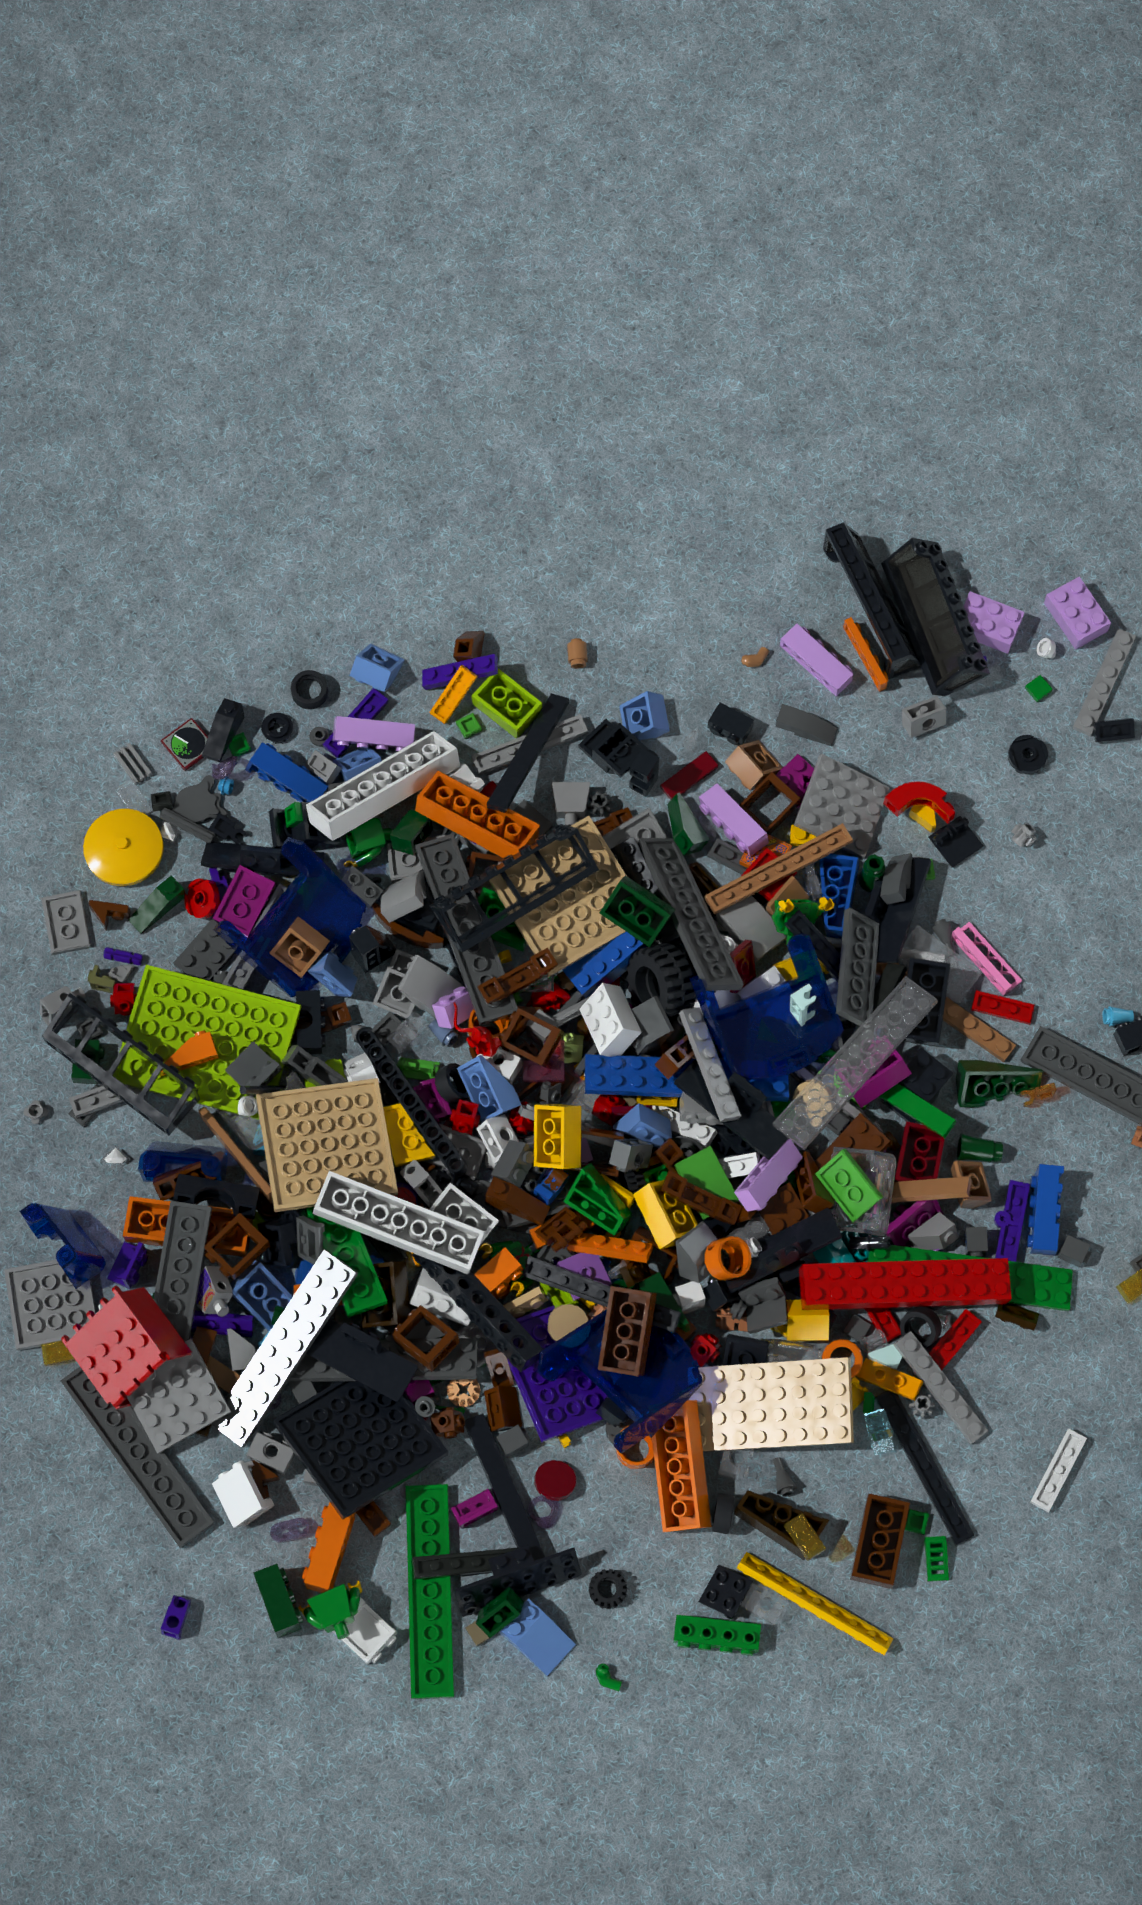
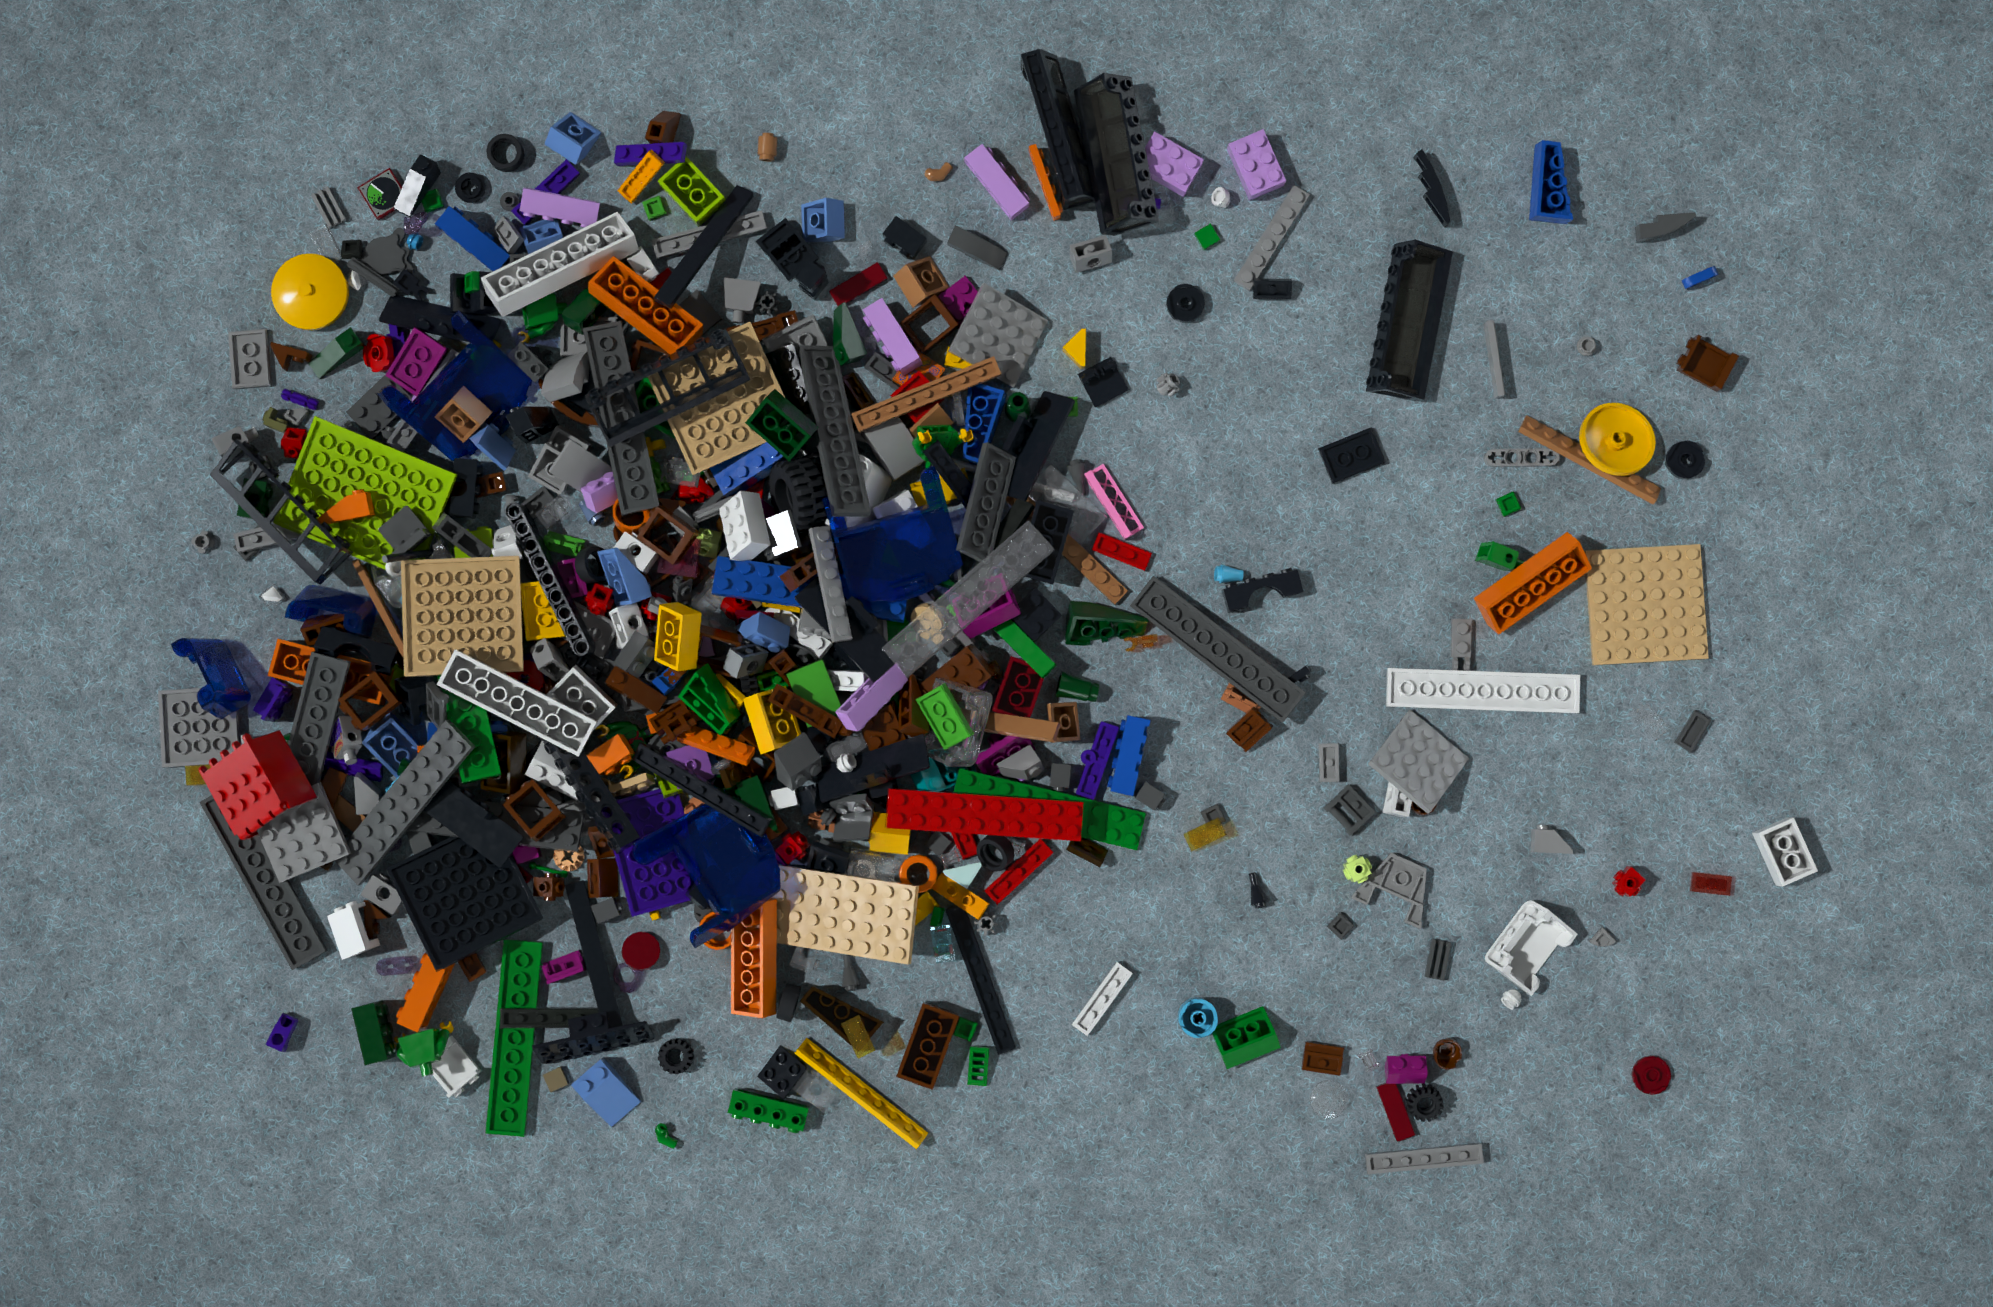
camera: 10 degrees right, 15 degrees up
(426, 1405) = (529, 870): dark grey cone -> none
(480, 1038) = (619, 530): red animal -> none
(499, 1612) = (572, 1069): dark green brick -> none
(519, 977) = (661, 475): reddish brown slope -> none
(565, 1320) = (667, 808): tan tile -> none
(627, 1331) = (717, 831): reddish brown brick -> none
(739, 1258) = (833, 771): orange piece -> none
(744, 962) = (878, 484): dark red tile -> none
(799, 1004) = (924, 535): light aqua hinge -> none
(870, 1242) = (959, 771): black axle -> none
(897, 879) = (1039, 415): dark grey slope -> none
(919, 794) = (1071, 333): red arch -> none
(940, 1387) = (1005, 910): light grey plate -> none

